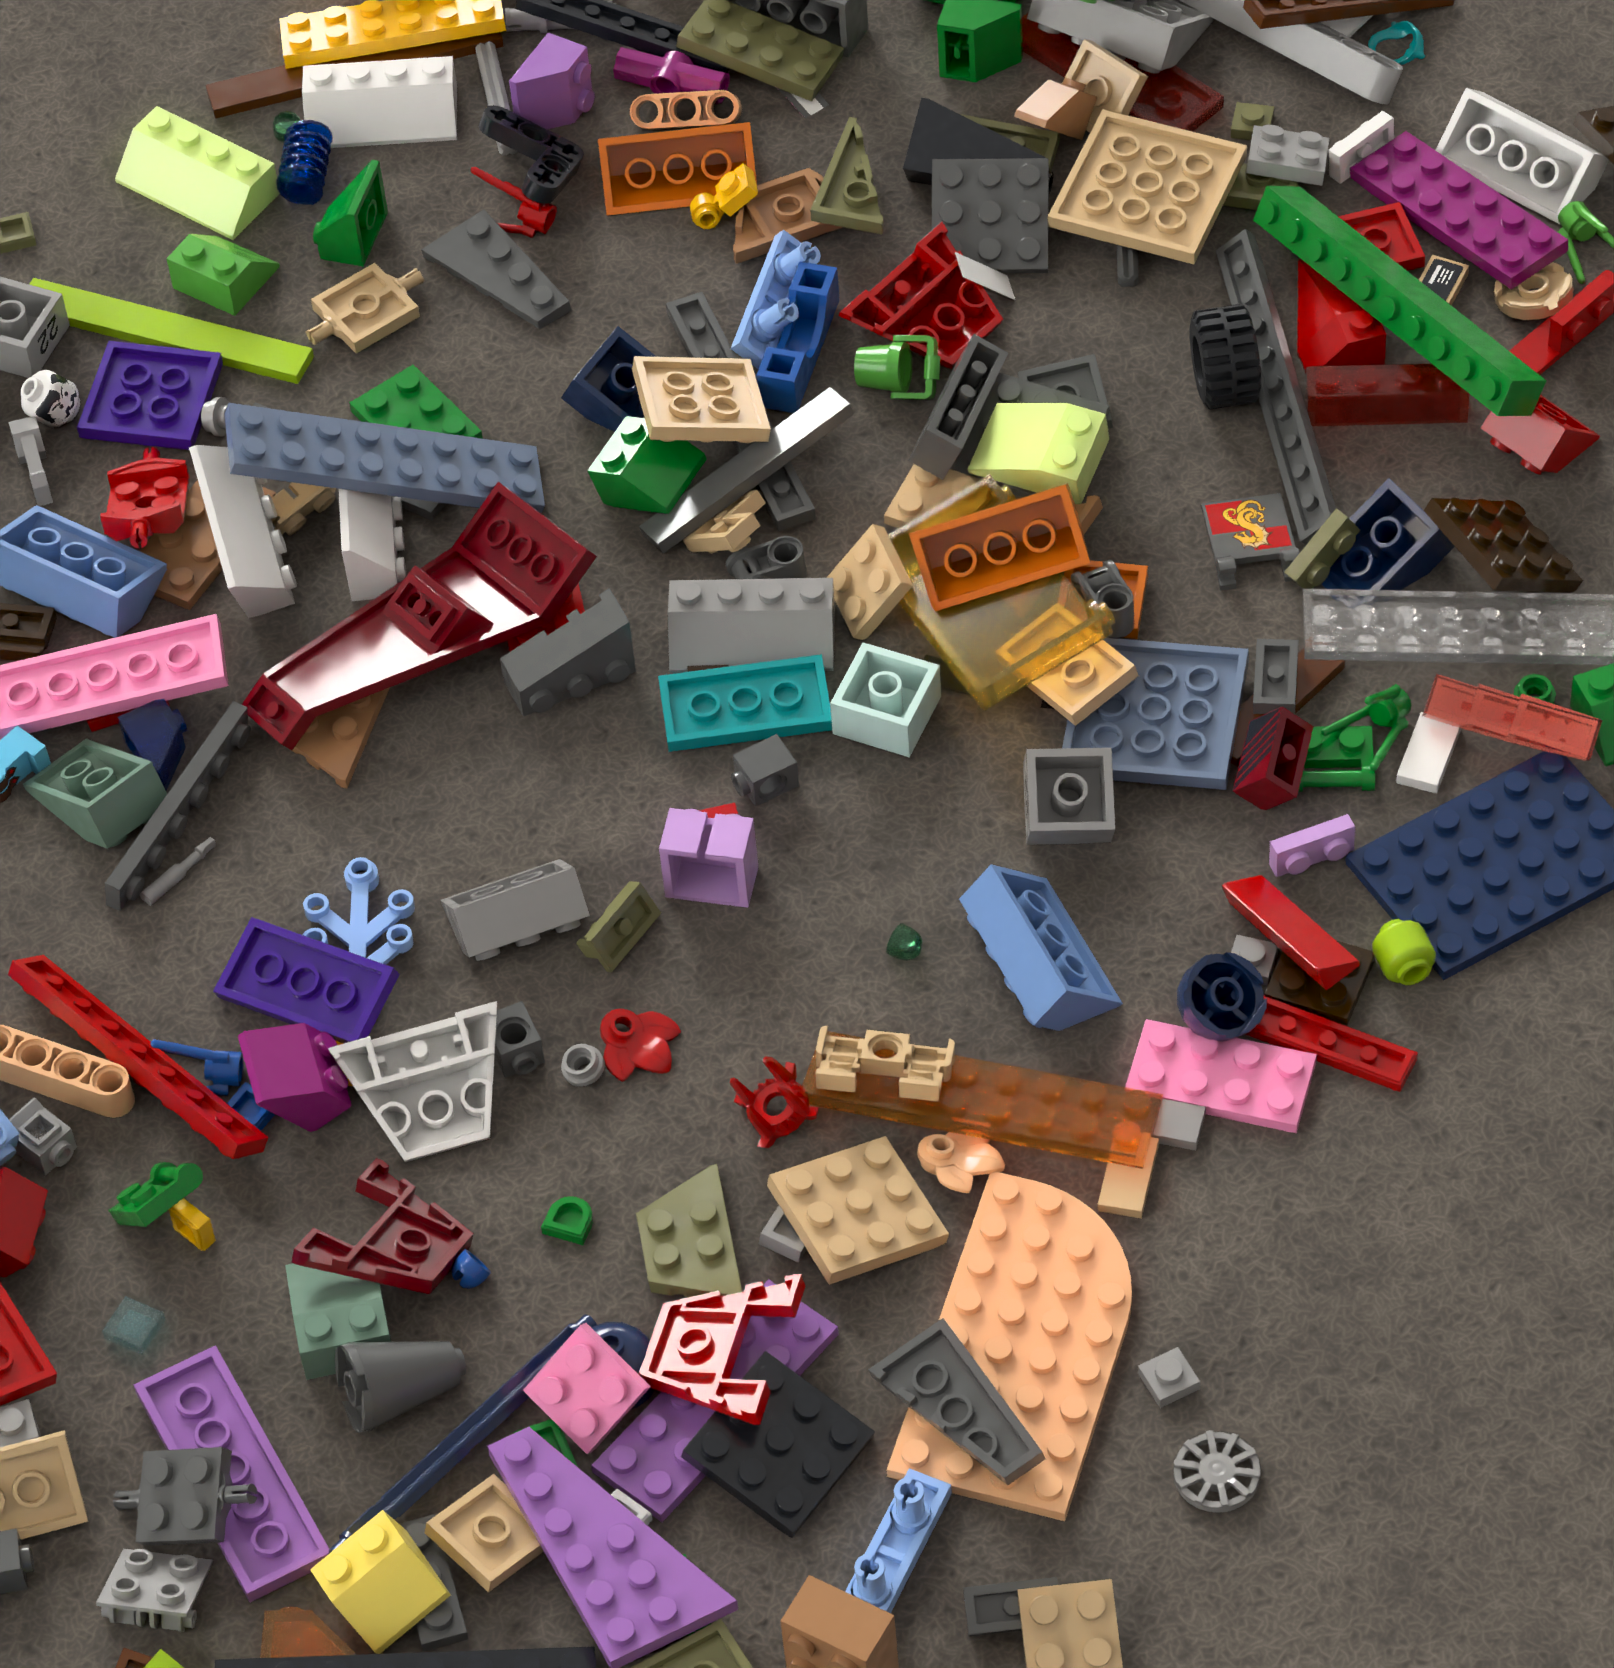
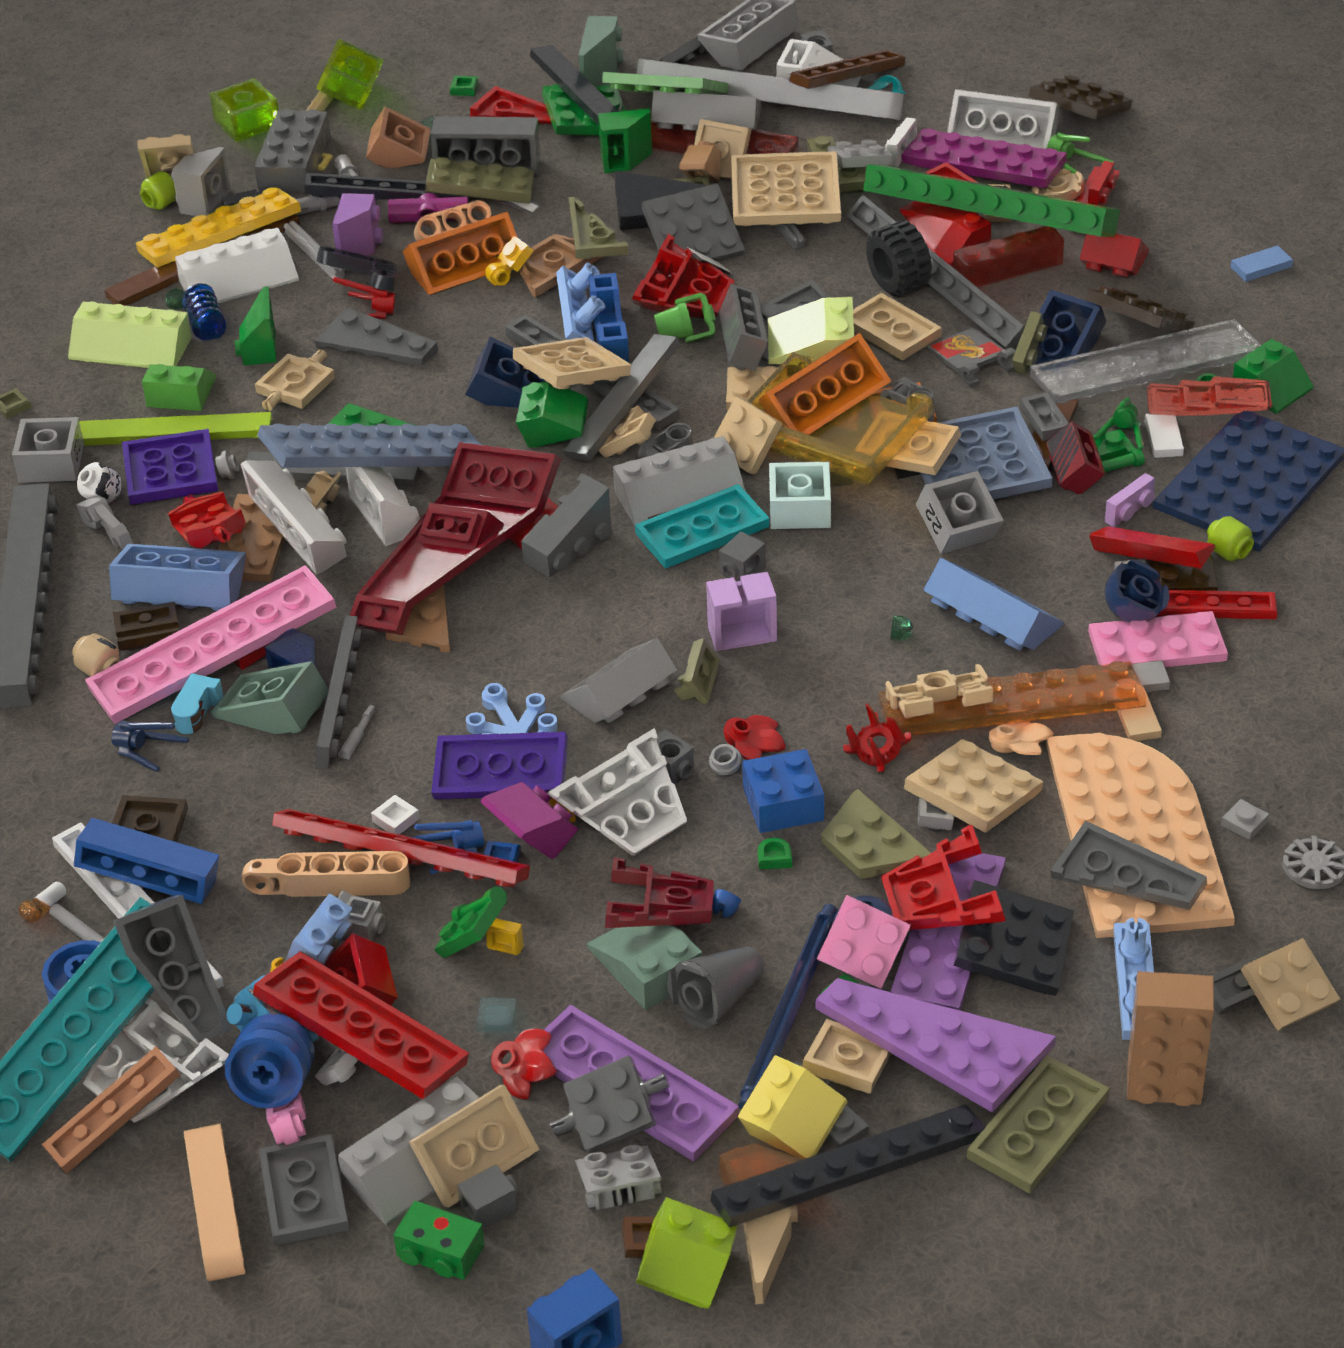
camera: 25 degrees left, 10 degrees down
(126, 1405) = (527, 1062): none -> red plate
(156, 1009) = (395, 815): none -> white plate
(620, 1136) = (783, 790): none -> blue brick
(1168, 459) = (894, 326): none -> tan plate

